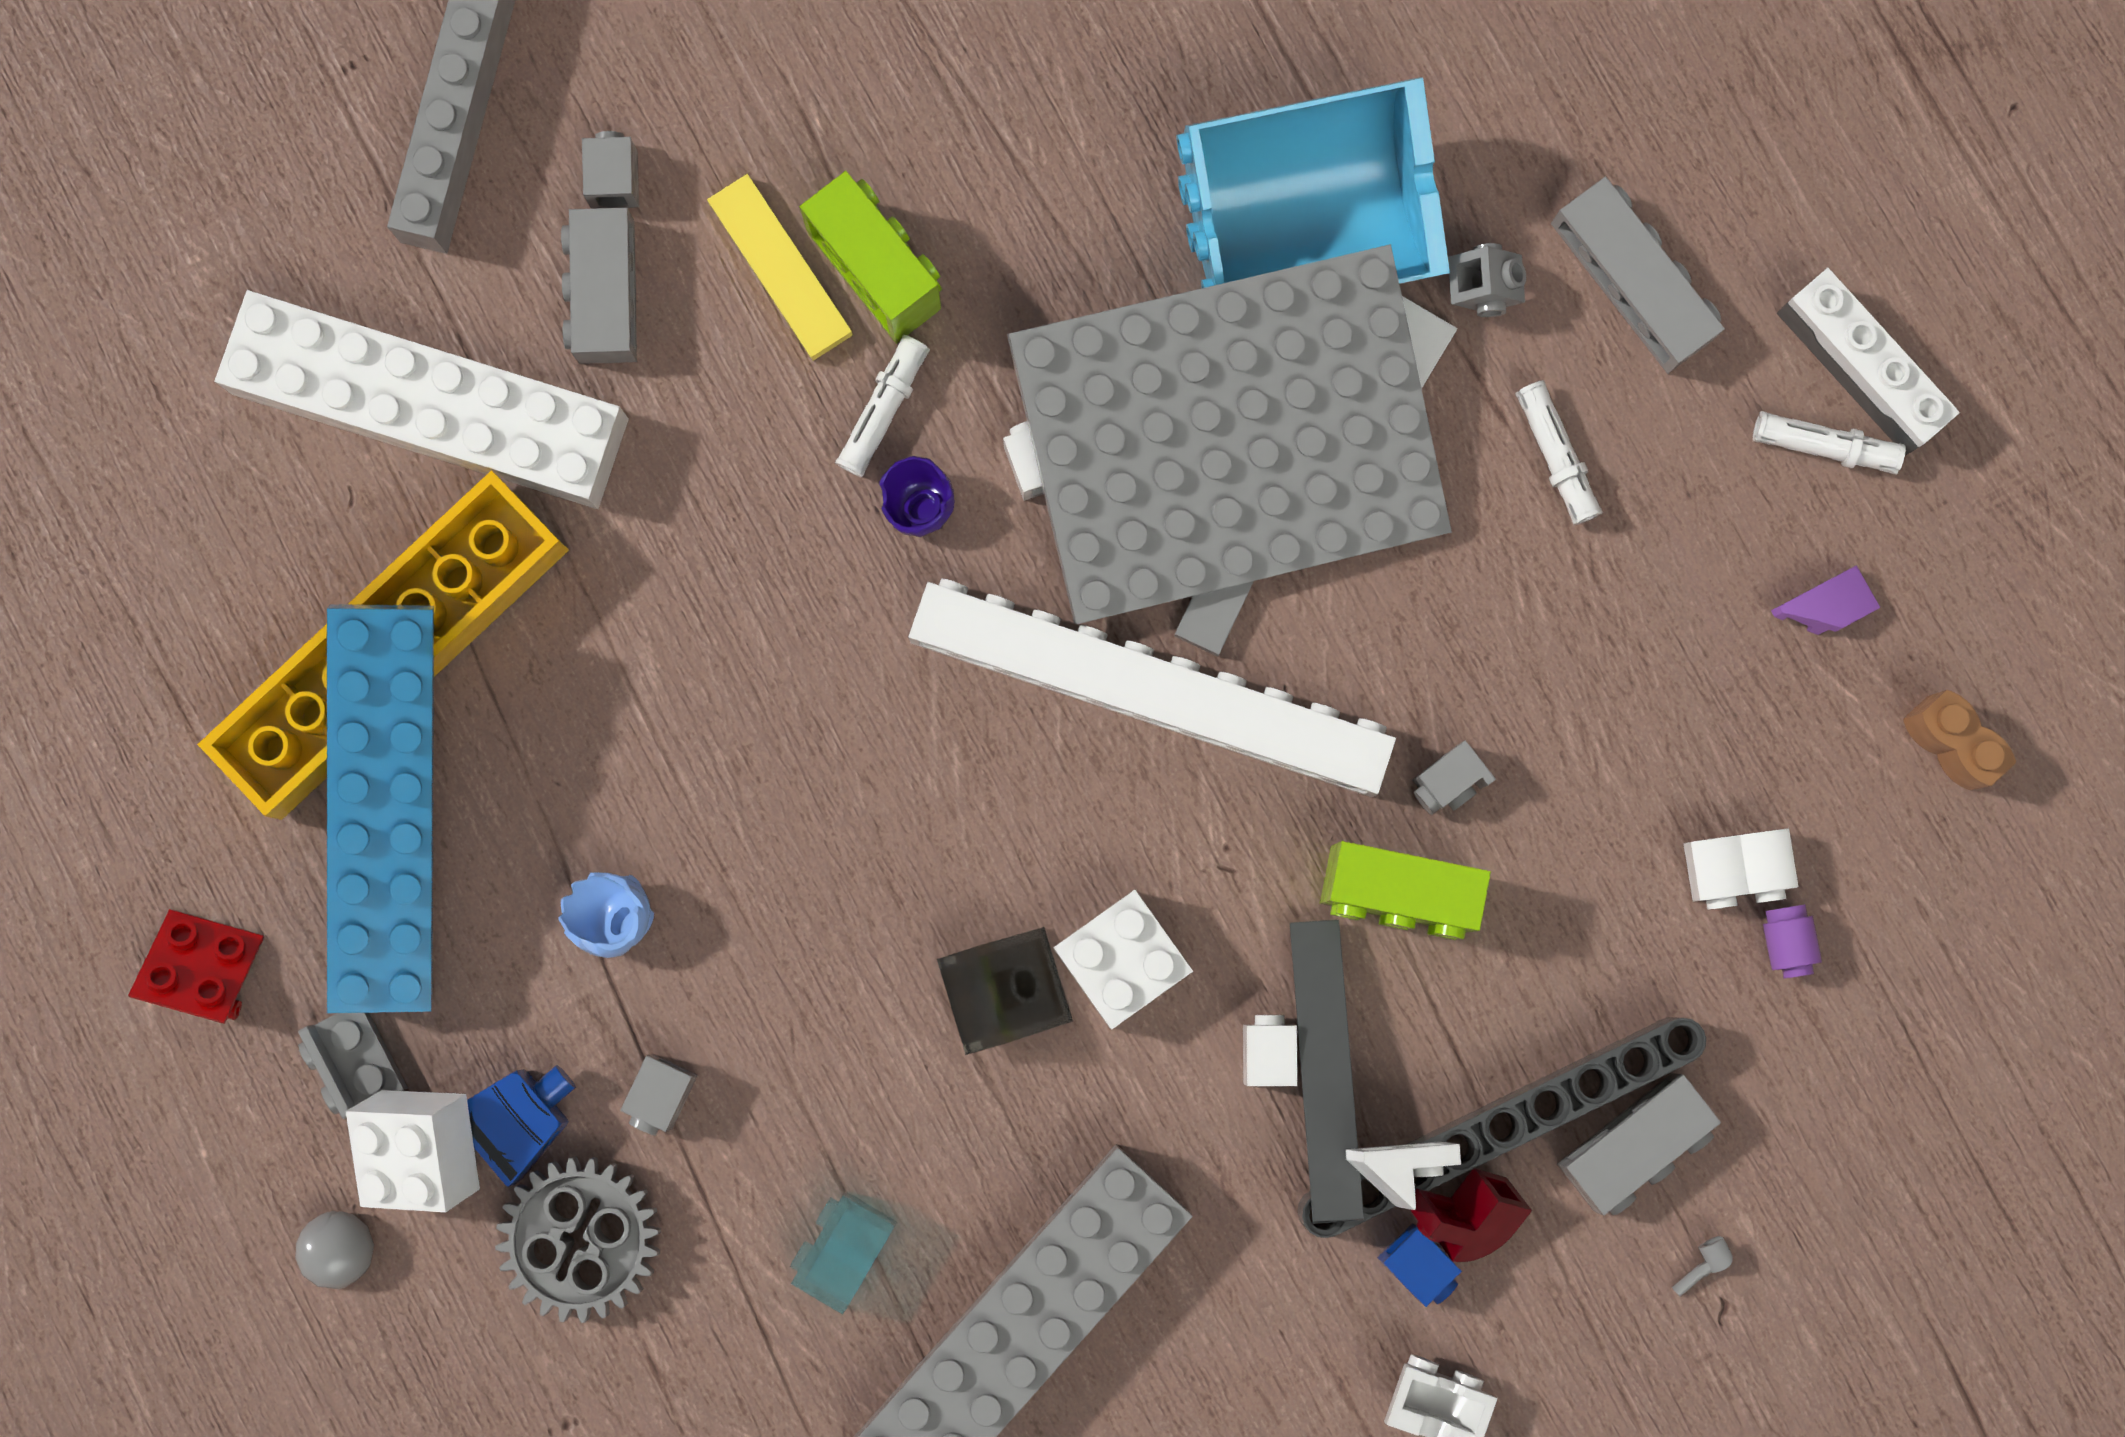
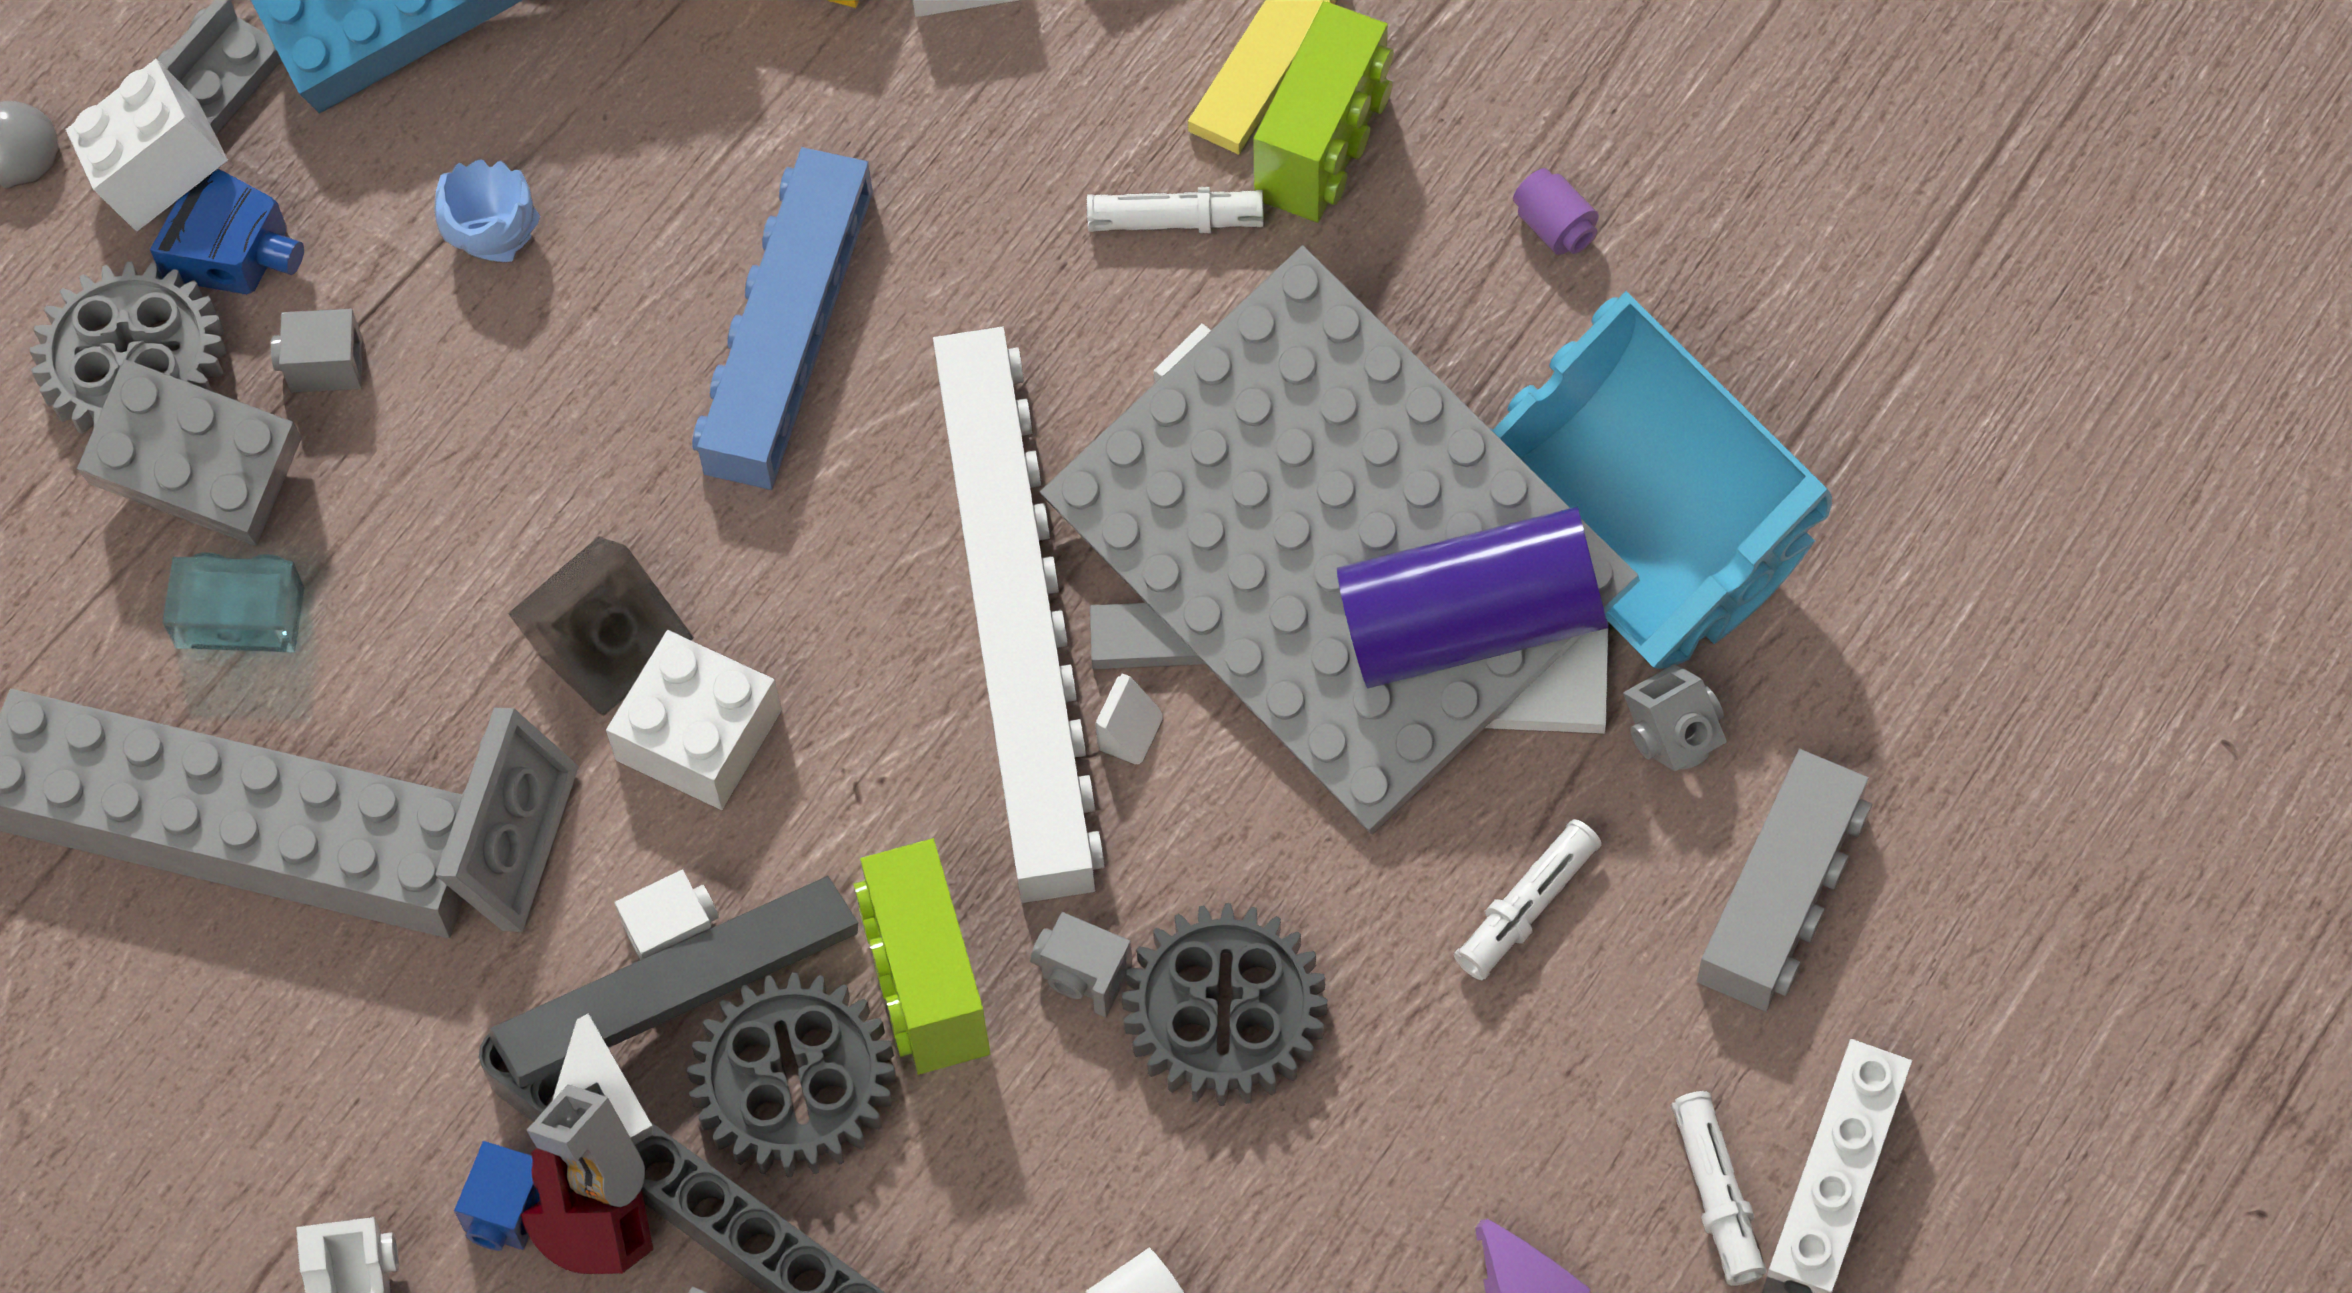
camera: 70 degrees right, 20 degrees down
(709, 1233) = (189, 452): none -> light grey brick
(819, 733) = (783, 319): none -> medium blue brick
(916, 496) = (1094, 283): dark purple hair -> none
(1037, 136) = (1556, 212): none -> medium lavender brick
(1141, 1134) = (507, 820): none -> light grey plate
(1280, 654) = (1127, 721): none -> white slope
(1347, 365) = (1471, 597): none -> dark purple brick
(1421, 1065) = (846, 1060): none -> dark grey gear
(1453, 1196) = (593, 1144): none -> light grey leg
(1551, 659) = (1167, 1002): none -> dark grey gear

